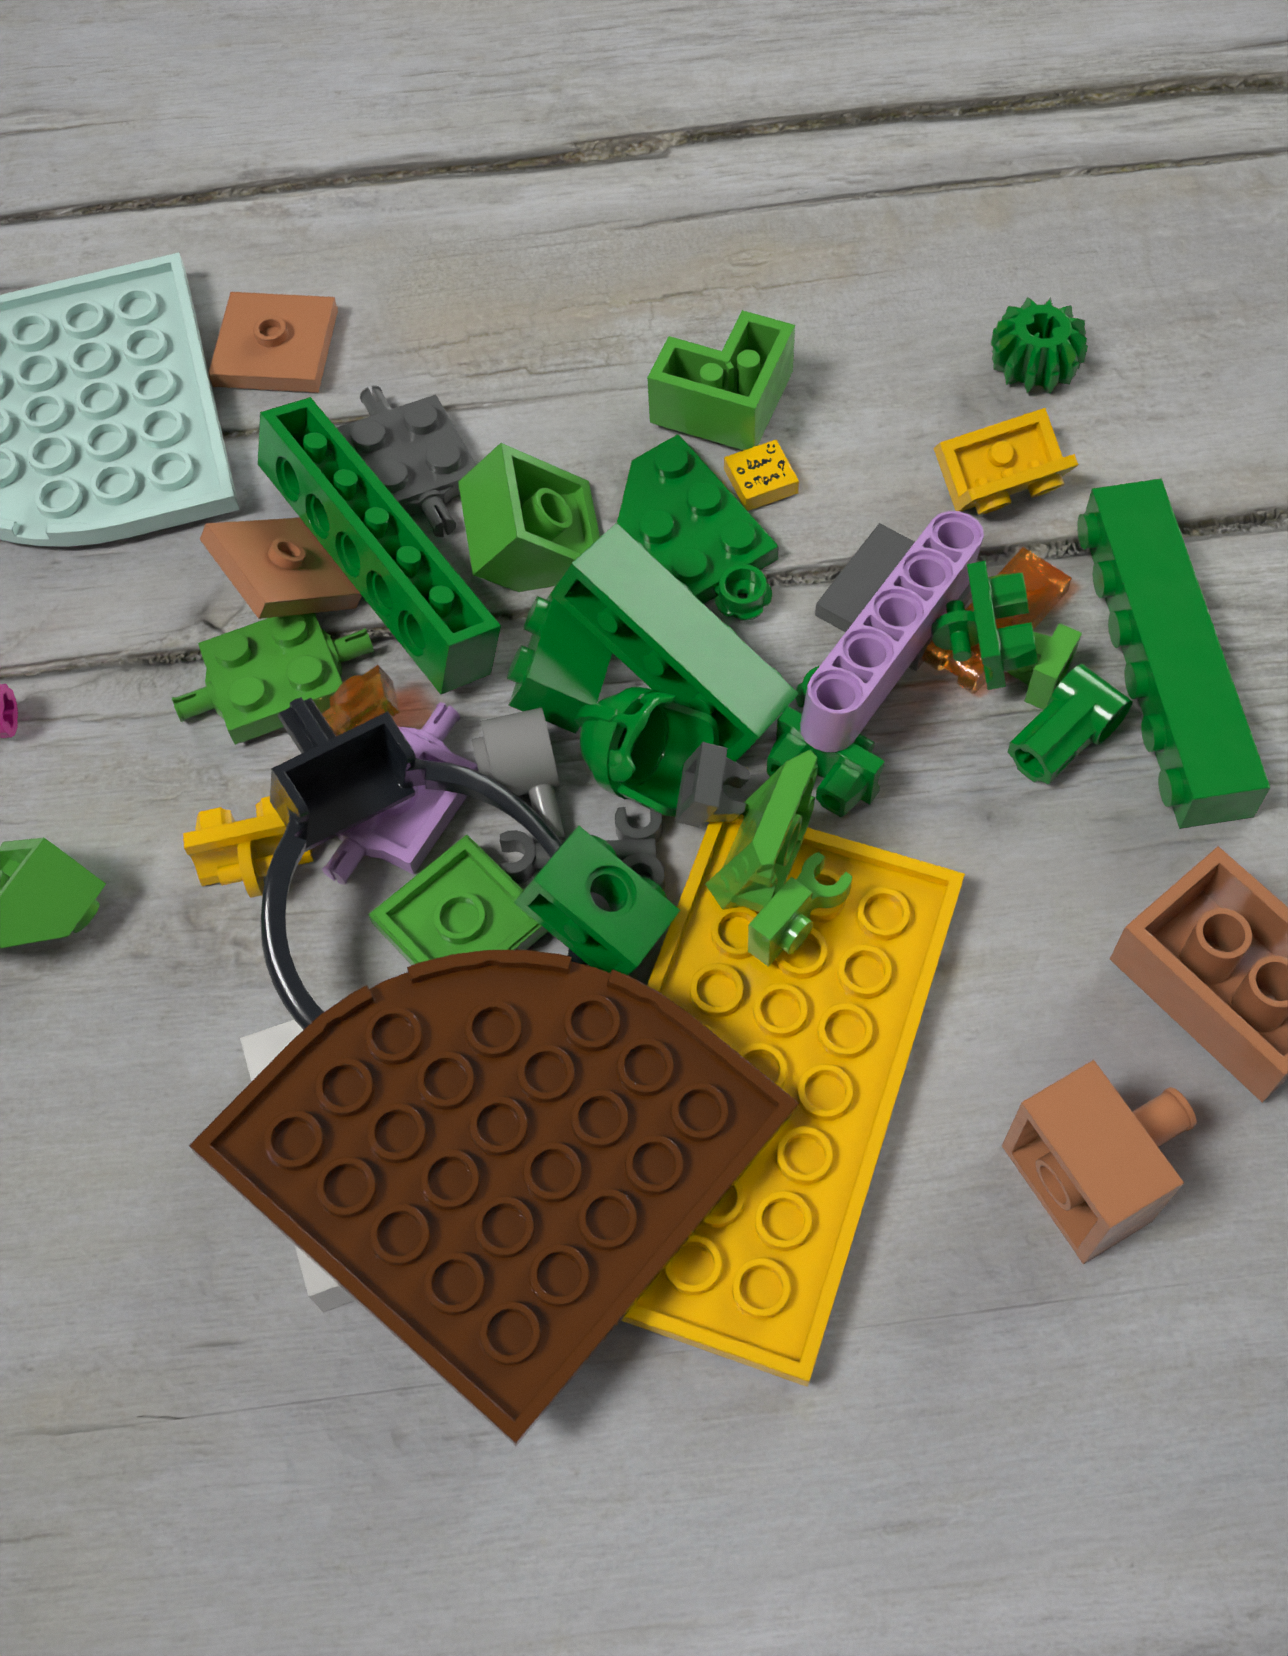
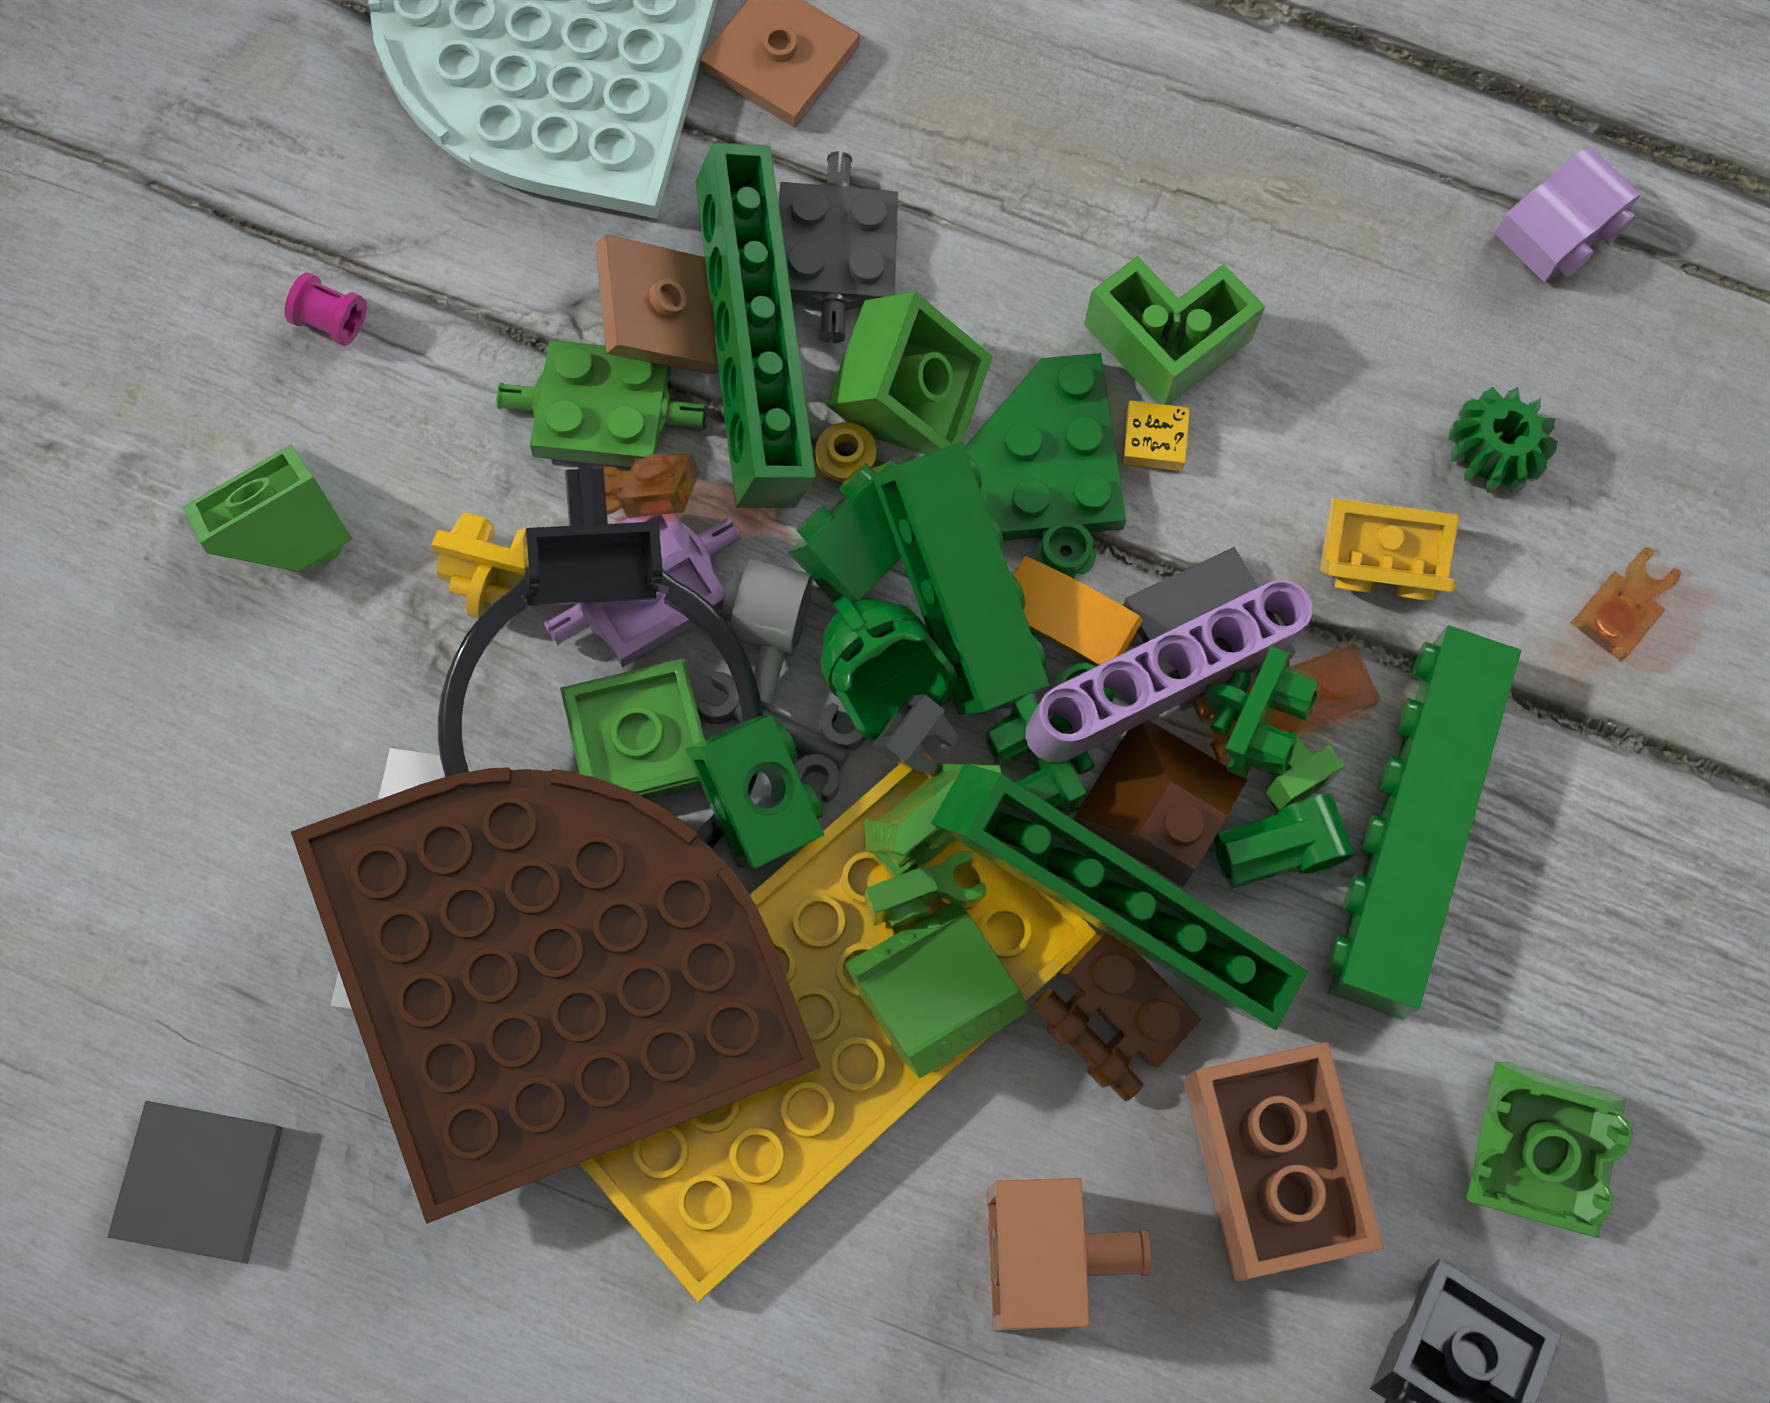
camera: 20 degrees right, 10 degrees up
(258, 1547) = (195, 1182): none -> dark grey tile
(511, 619) = (838, 466): none -> yellow plate
(787, 634) = (1074, 614): none -> light orange slope
(857, 987) = (936, 989): none -> bright green slope
(947, 748) = (1160, 801): none -> reddish brown slope
(970, 808) = (1118, 894): none -> green brick
(981, 171) = (1569, 214): none -> lavender brick
(1026, 913) = (1130, 999): none -> reddish brown plate
(1214, 419) = (1624, 607): none -> clear orange plate

